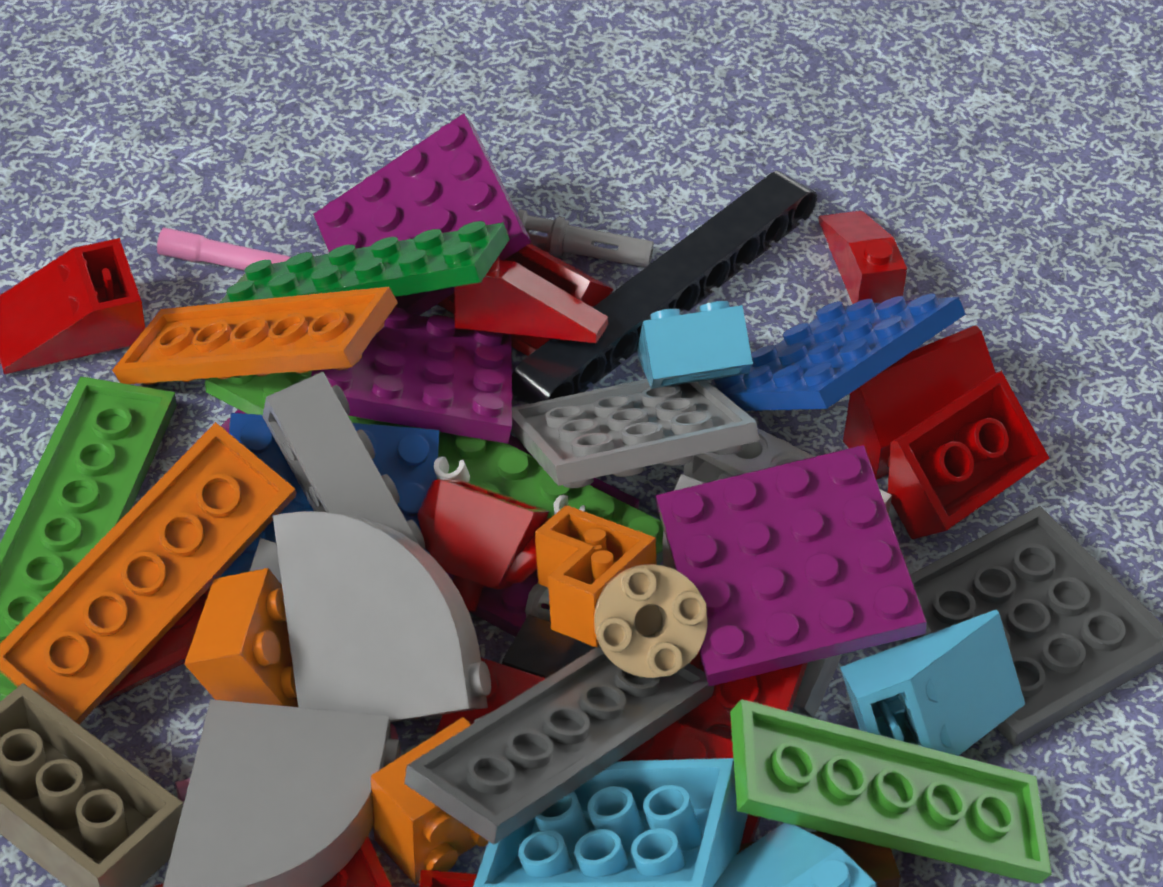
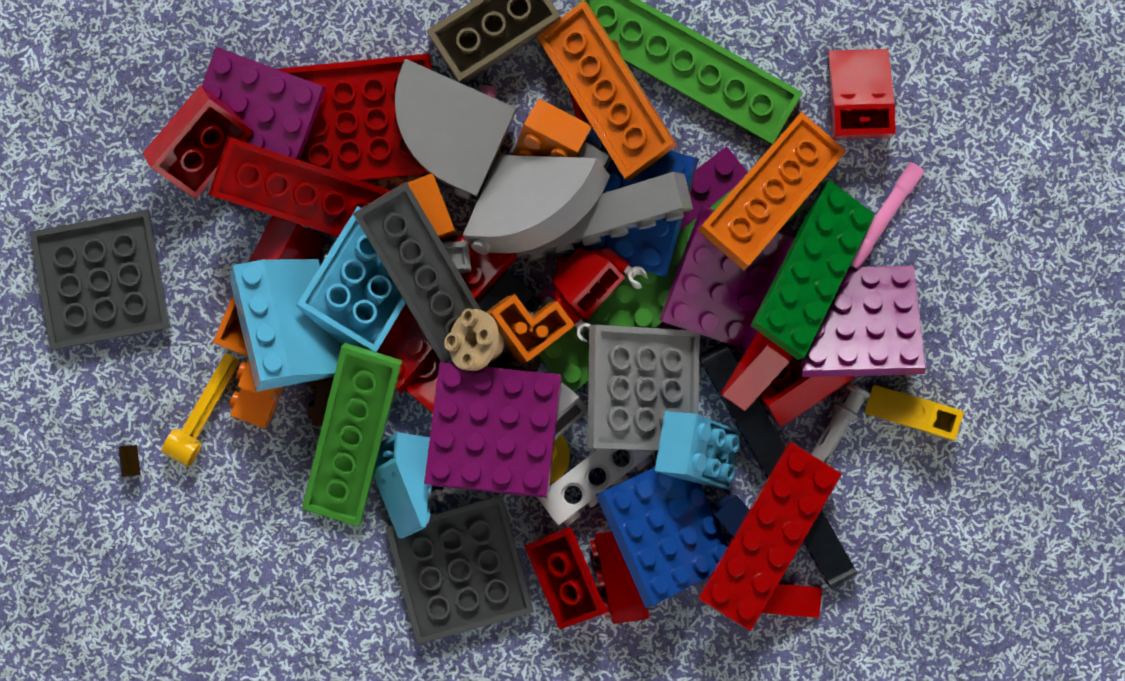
camera: 110 degrees right, 40 degrees up
(528, 153) = (914, 412): none -> yellow slope
(771, 309) = (730, 513): none -> dark blue brick
(781, 245) = (769, 536): none -> red plate

